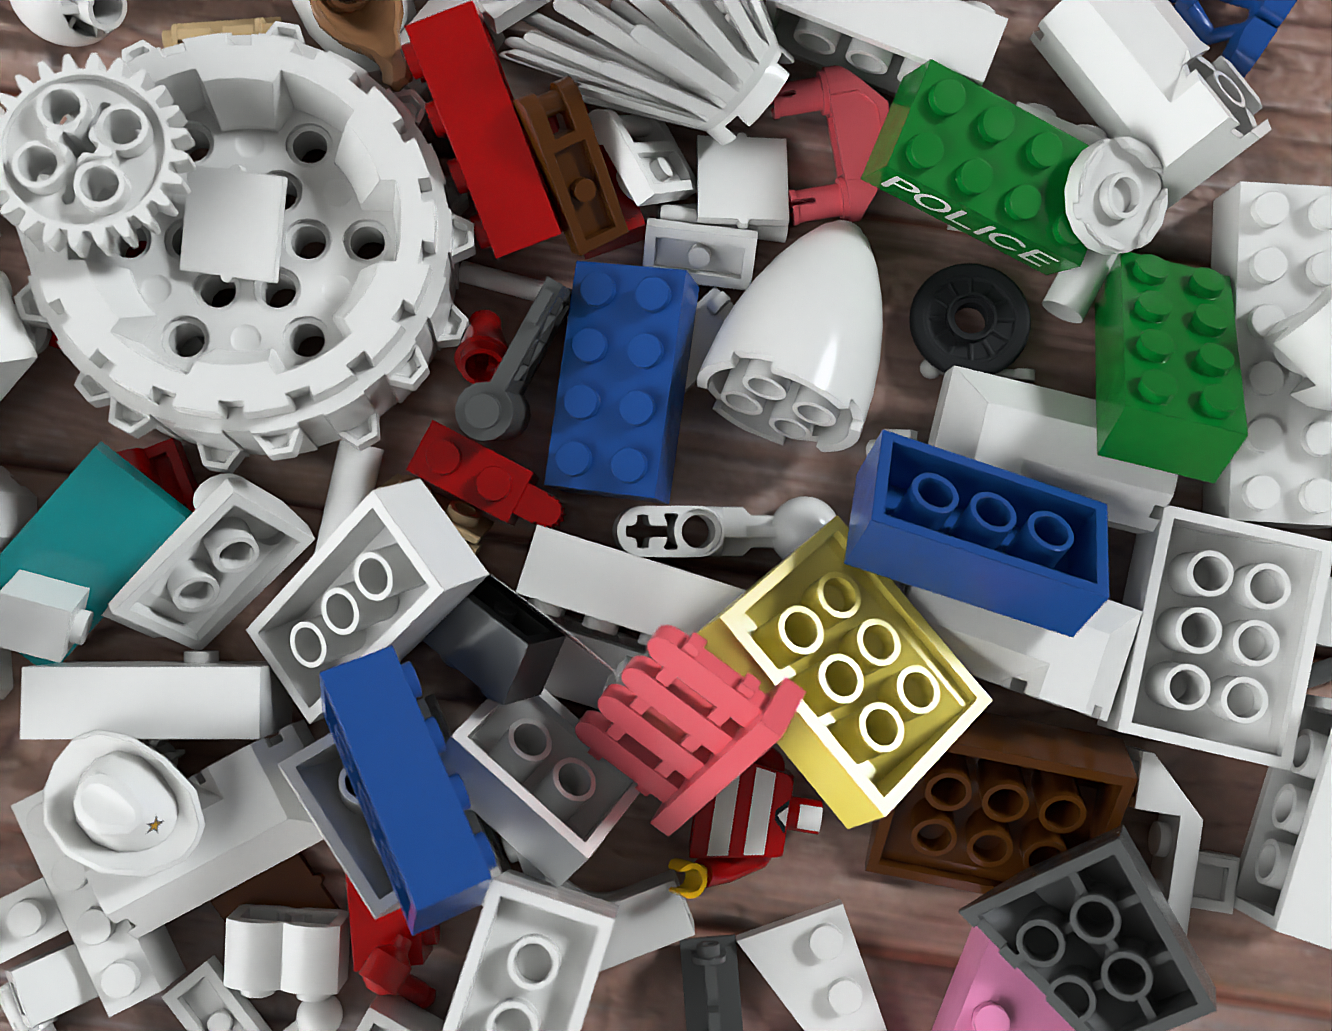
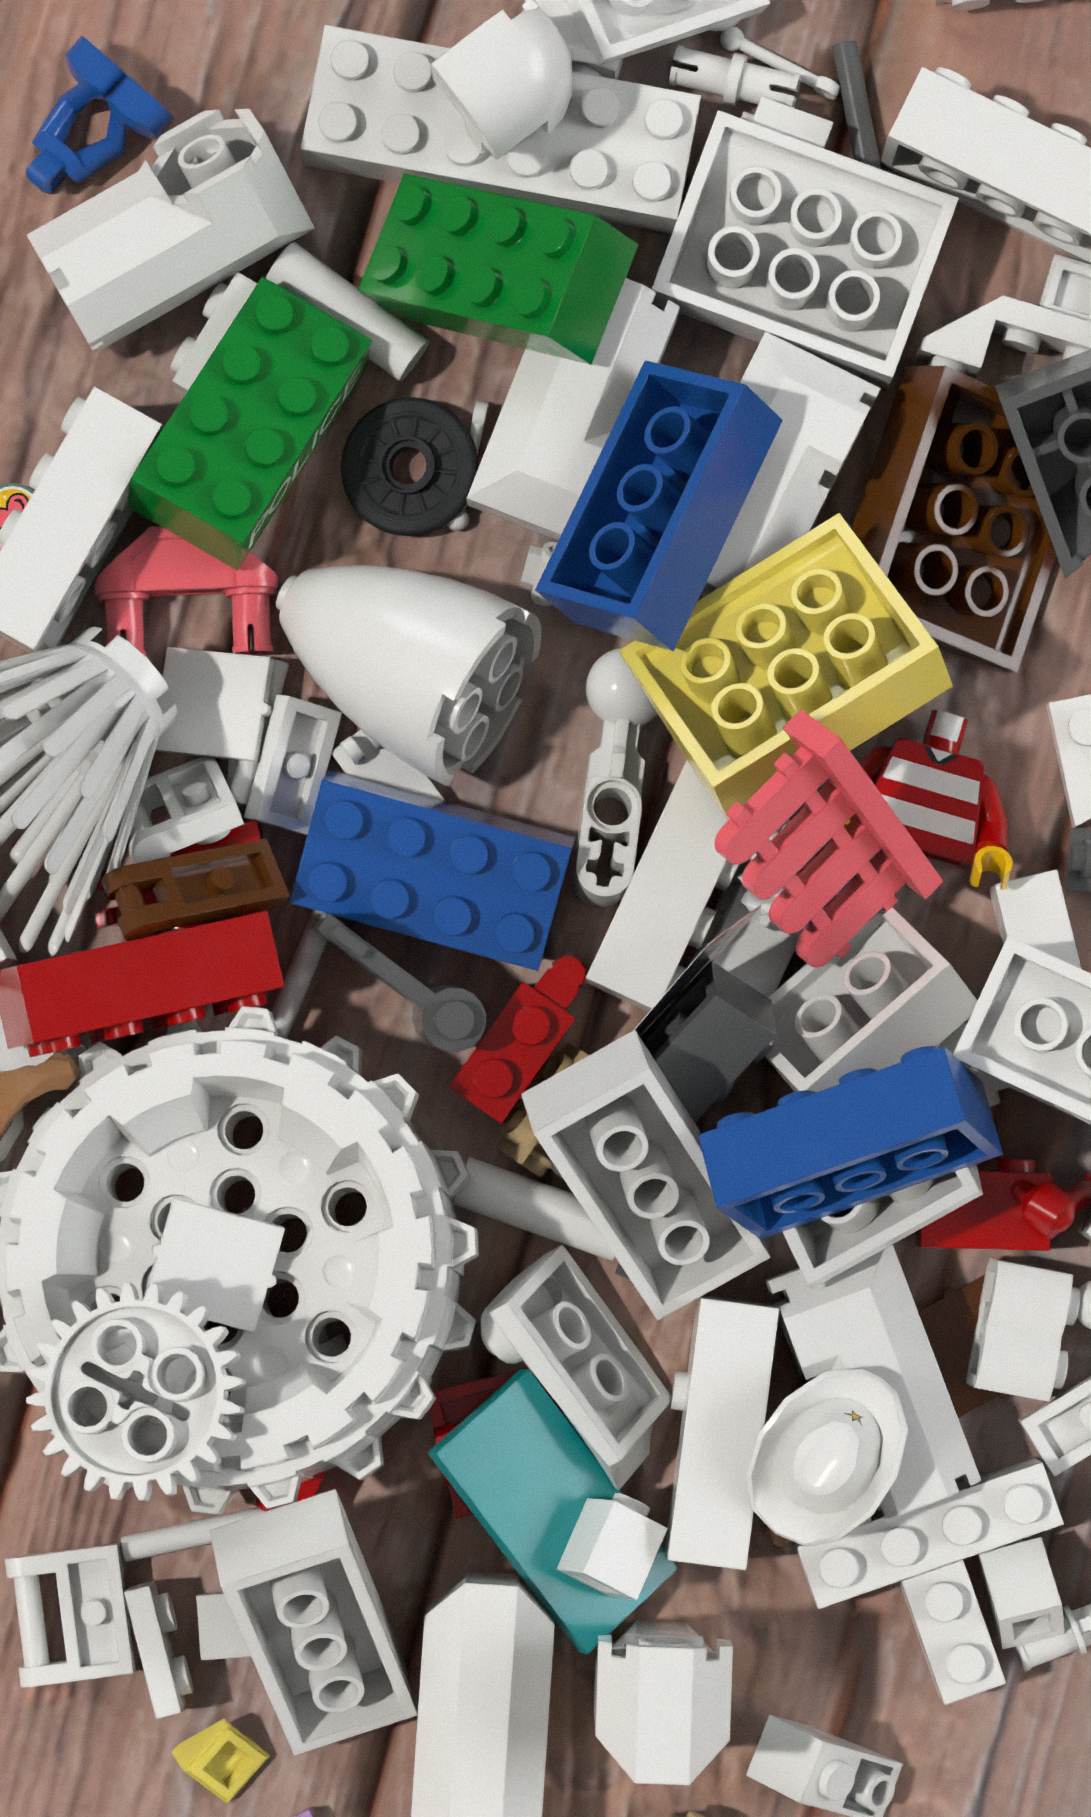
camera: 80 degrees left, 0 degrees up
(481, 347) = (374, 1023): red cone -> none
(1115, 195) = (302, 292): white tile -> none

